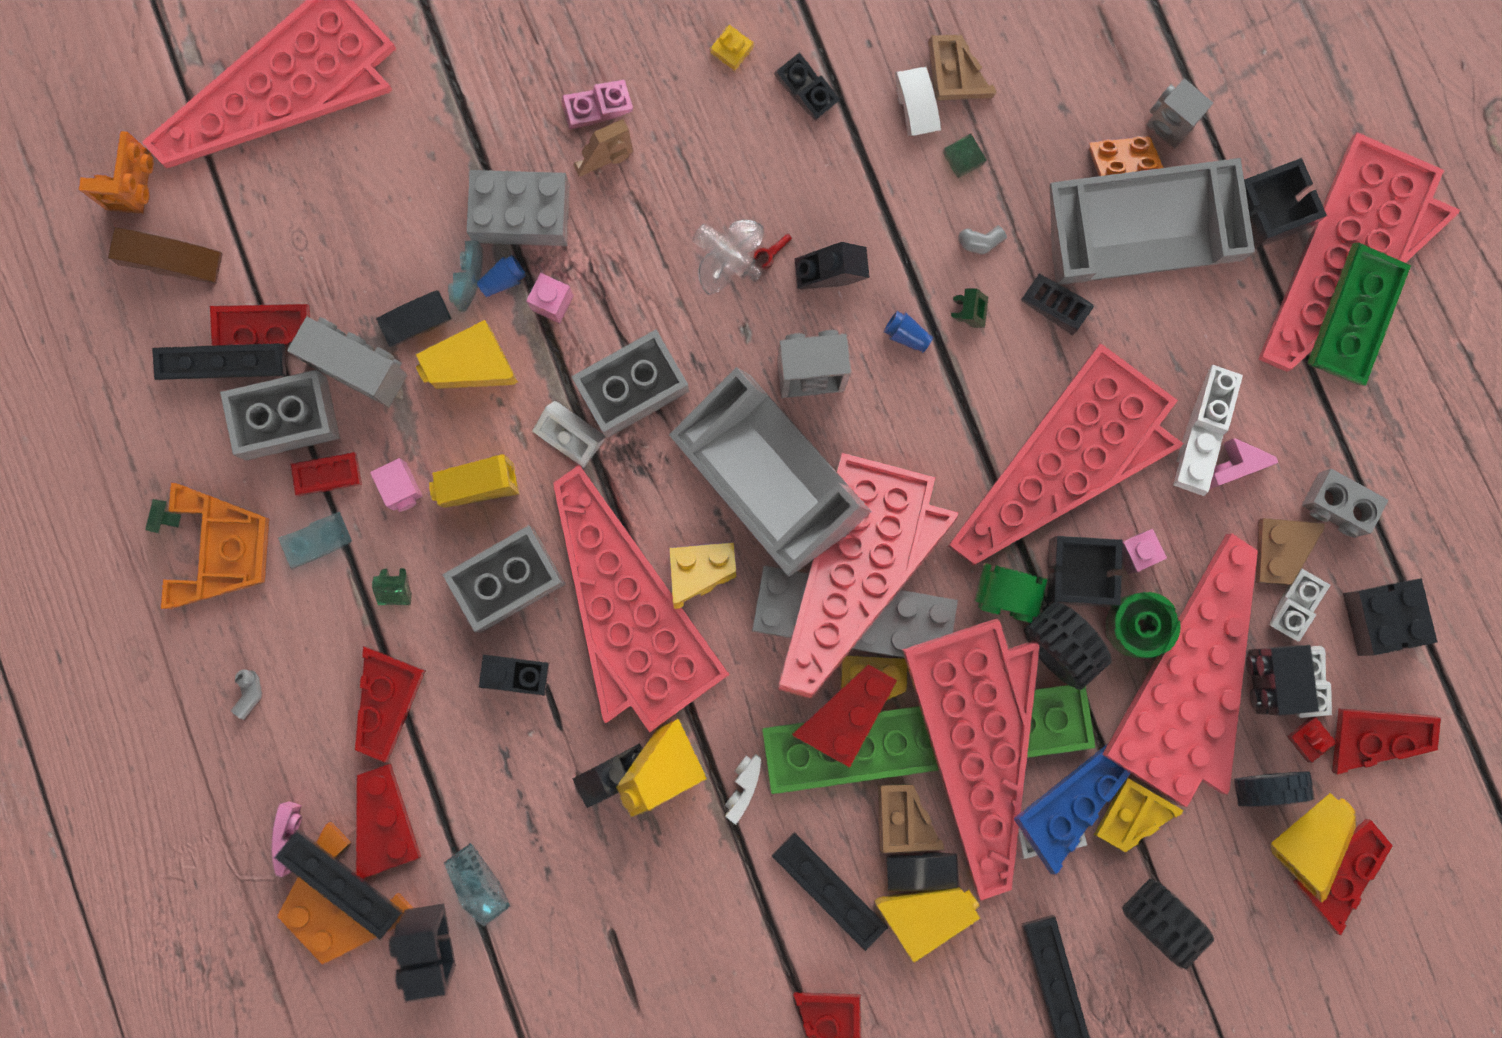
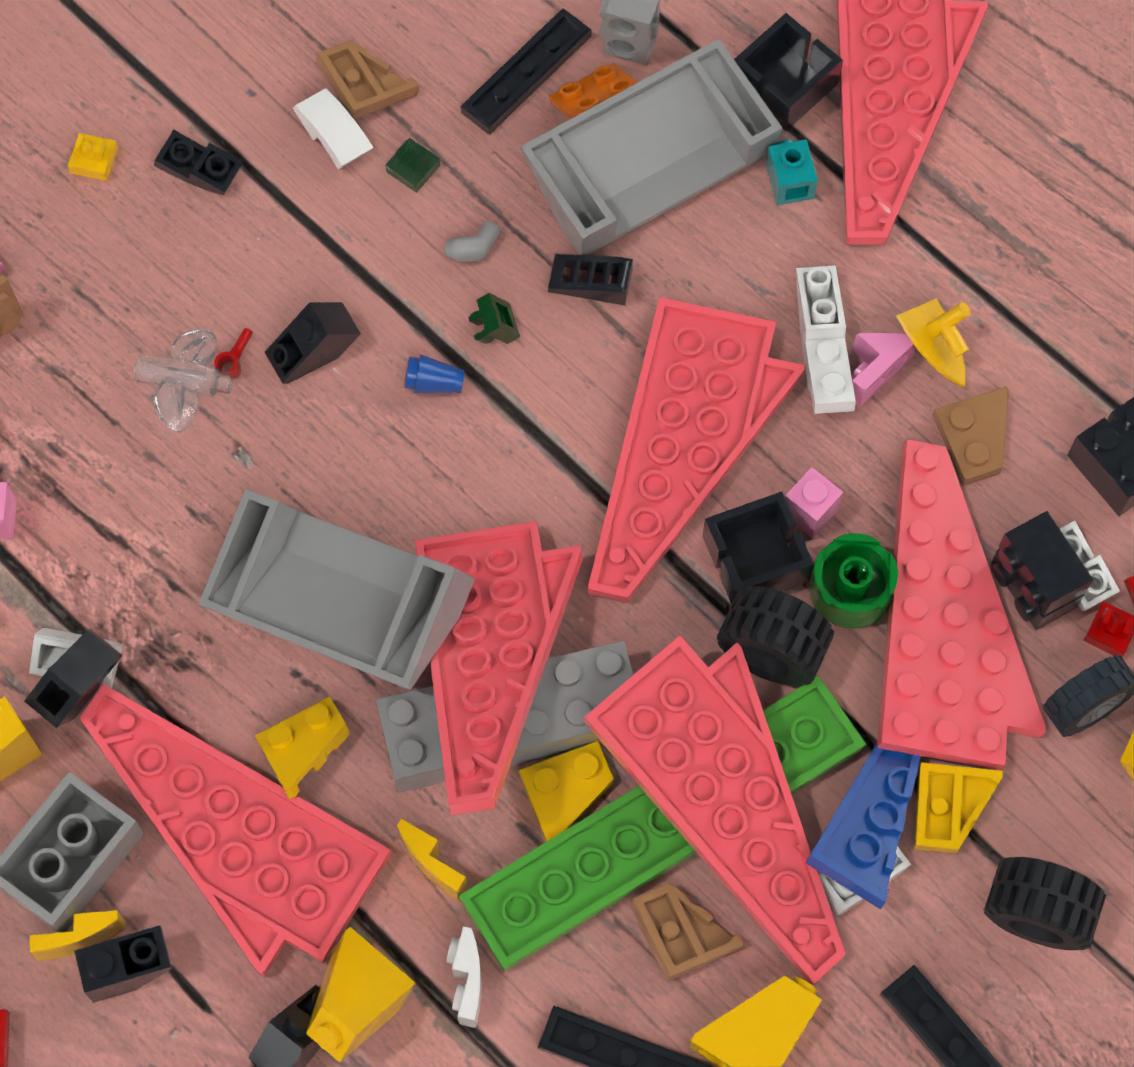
camera: 20 degrees left, 15 degrees down
(498, 638) = (88, 930): none -> yellow slope
(559, 454) = (73, 679): none -> black slope
(631, 383) = (127, 564): light grey brick -> none
(751, 684) = (423, 852): none -> yellow slope
(813, 364) = (335, 448): light grey brick -> none
(848, 716) = (555, 834): red wing -> none
(922, 872) = (729, 981): black slope -> none
(1011, 592) = (681, 606): green brick -> none
(1082, 114) = (525, 71): none -> black tile
(1244, 284) = (791, 171): none -> teal brick
(1292, 465) = (937, 337): none -> yellow shield
(1297, 605) = (1022, 484): white slope -> none
(1345, 497) = (1016, 344): light grey brick -> none
(1359, 314) = (932, 150): green tile -> none

